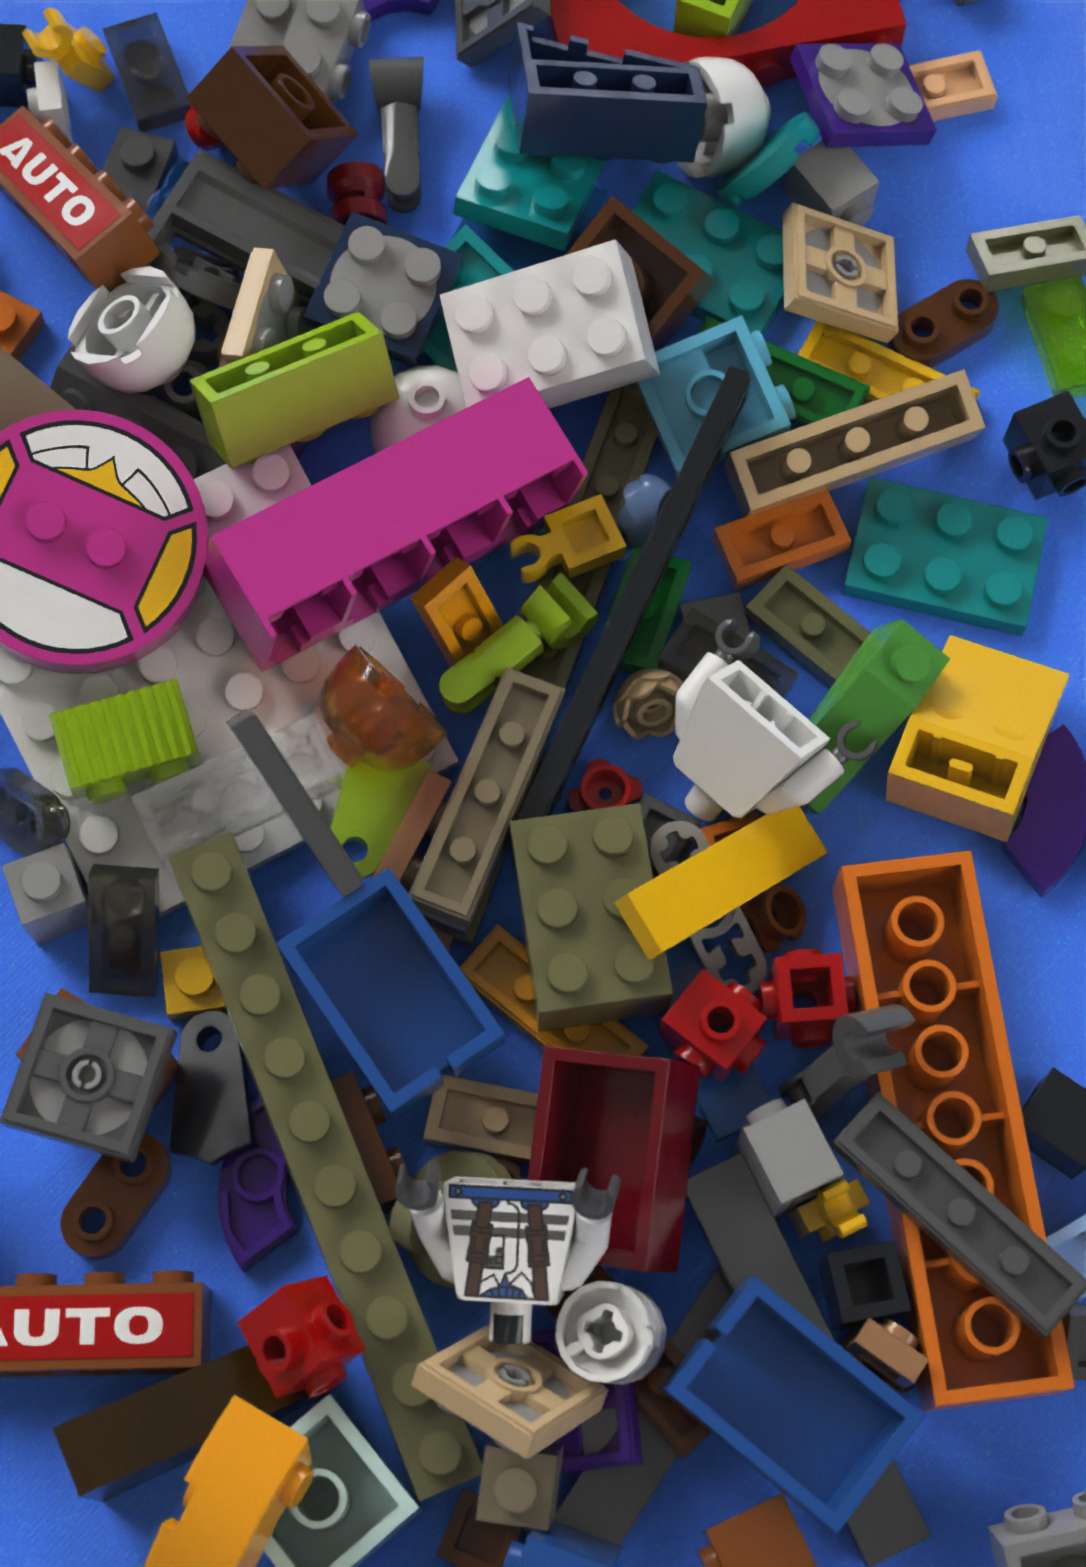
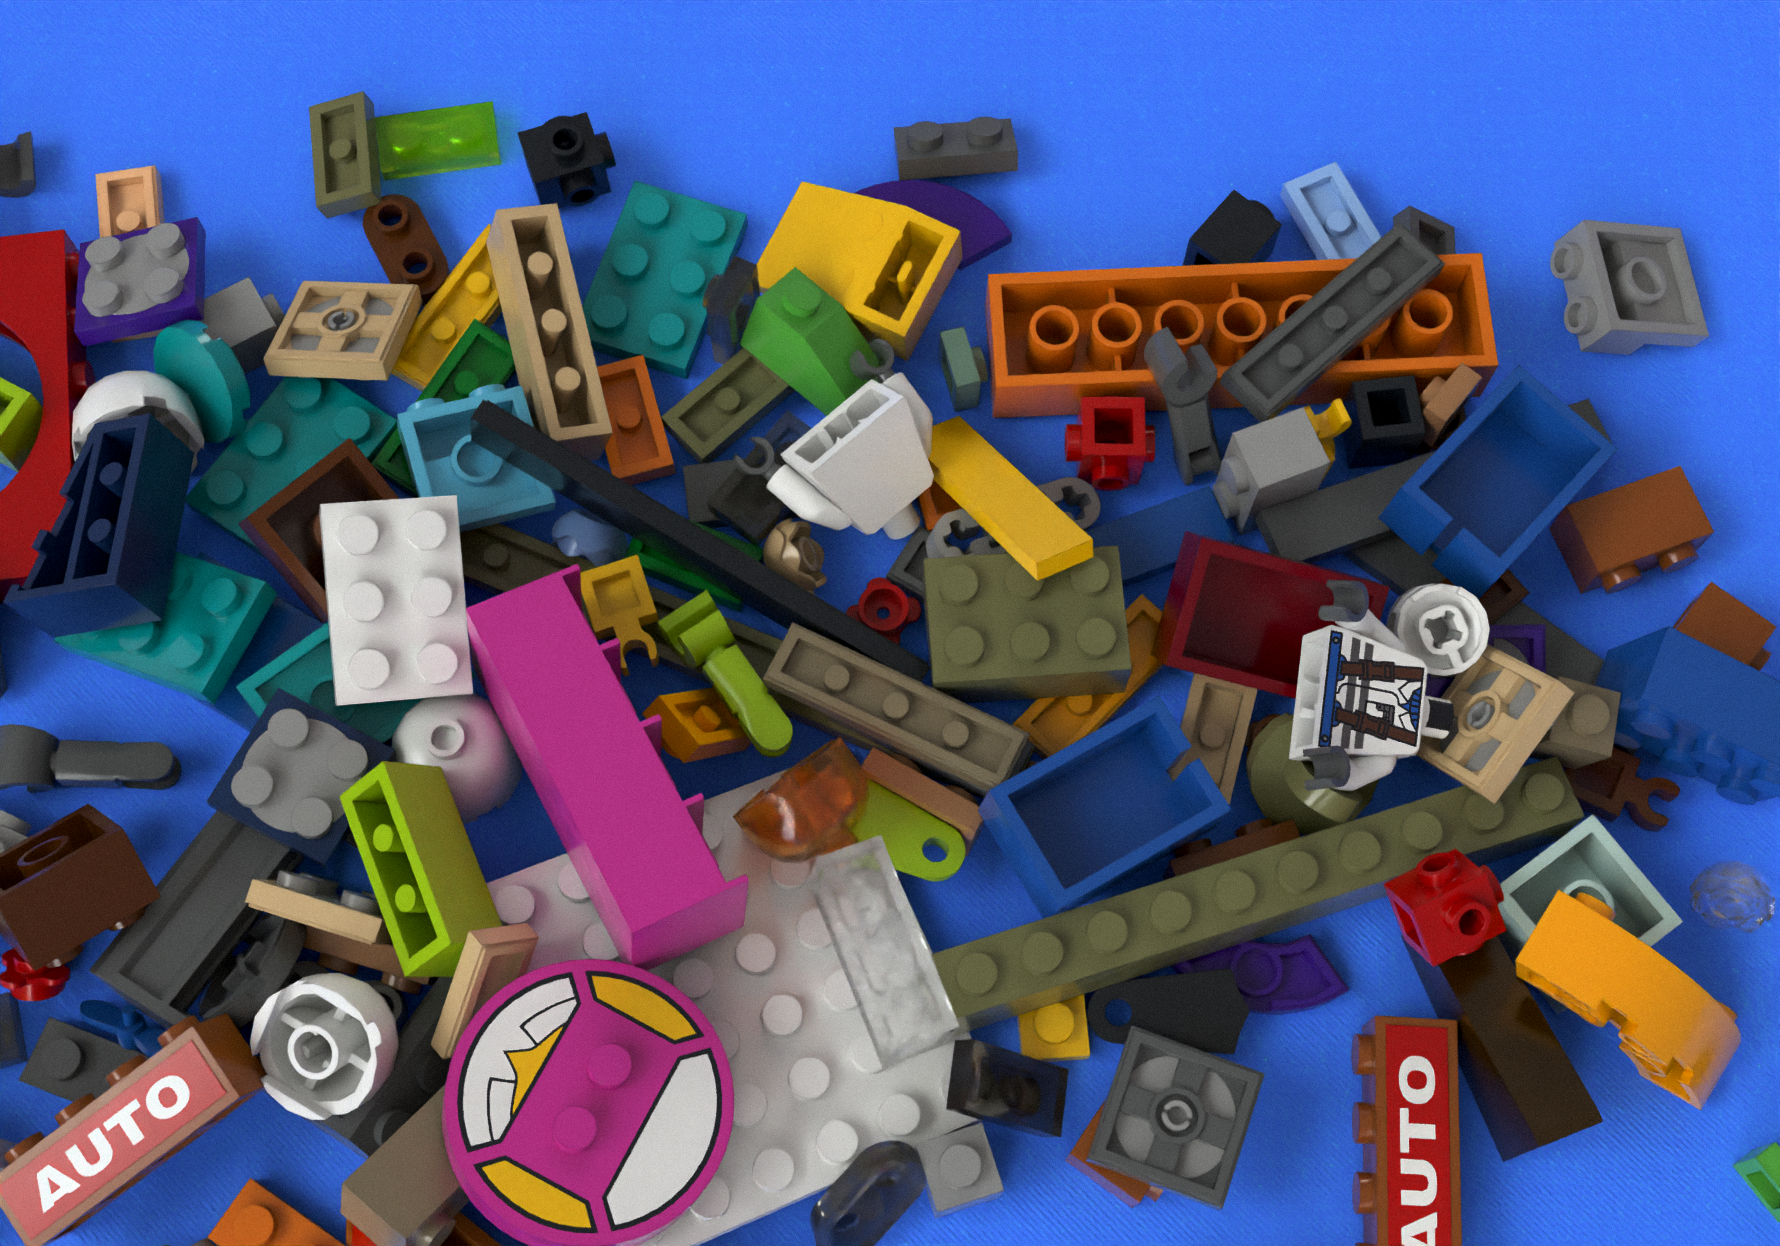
camera: 85 degrees left, 0 degrees up
(120, 1197) = (1275, 1112): reddish brown plate -> none
(125, 741) = (815, 1068): lime brick -> none
(203, 448) = (486, 965): none -> tan tile
(295, 802) = (917, 875): dark grey tile -> none
(356, 189) = (168, 813): dark red wheel -> none
(714, 1005) = (1142, 518): red brick -> none
(775, 916) = (1029, 460): reddish brown plate -> none
(878, 843) = (962, 368): none -> sand green plate
(902, 597) = (729, 306): none -> clear smoke plate

